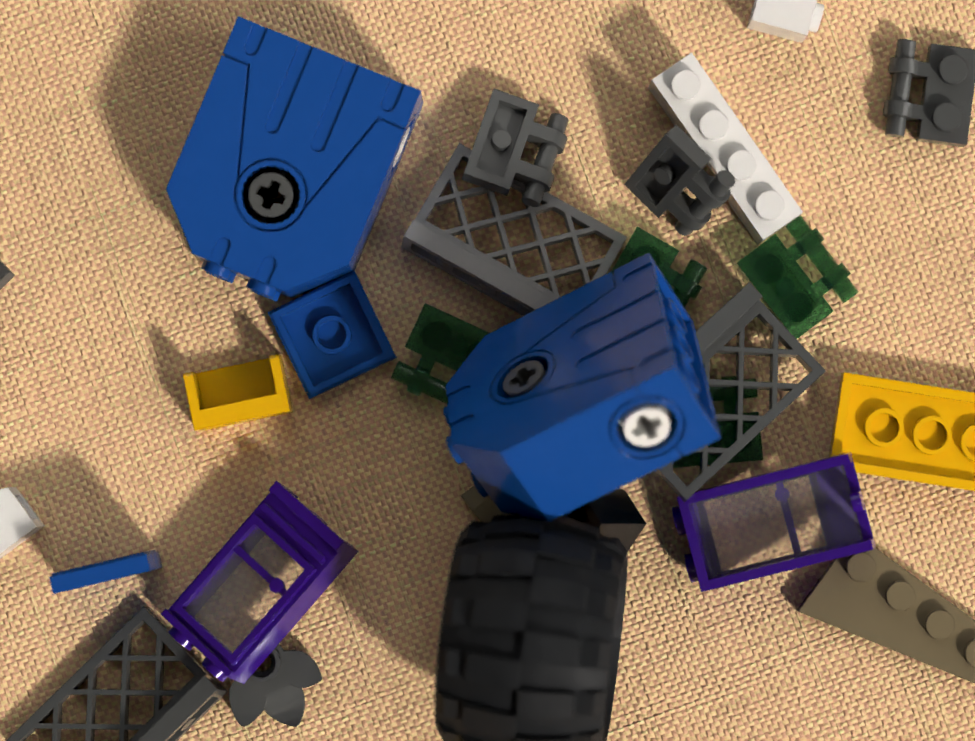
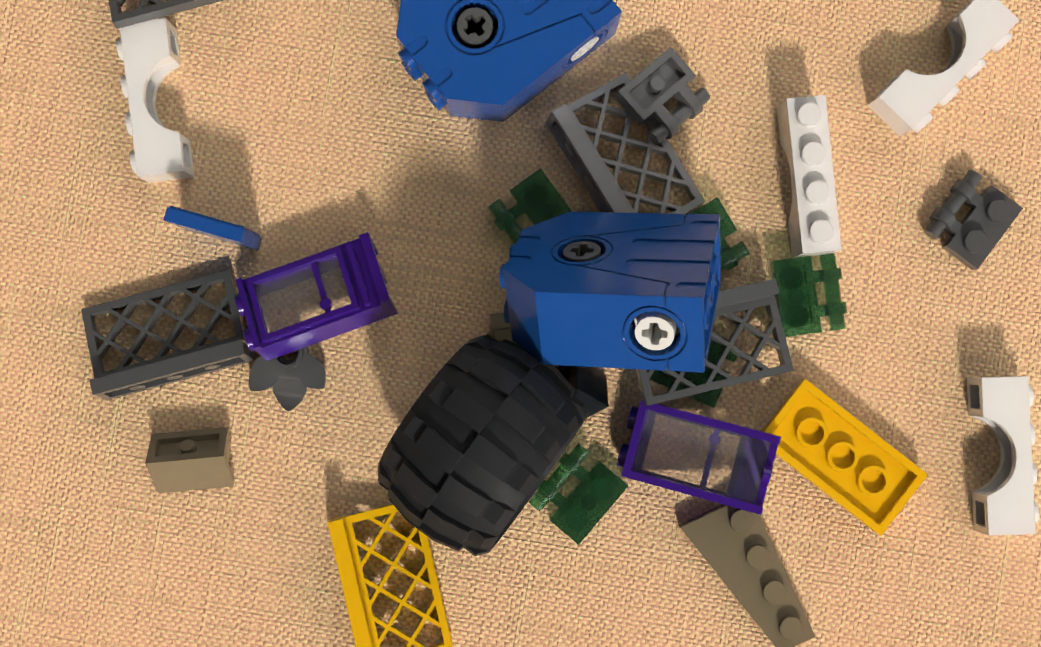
camera: 25 degrees right, 0 degrees up
(238, 393) = (375, 159): yellow panel -> none
(332, 335) = (464, 155): blue tile -> none
(672, 168) = (764, 169): dark grey plate -> none
(681, 639) = (588, 499): none -> clear green plate

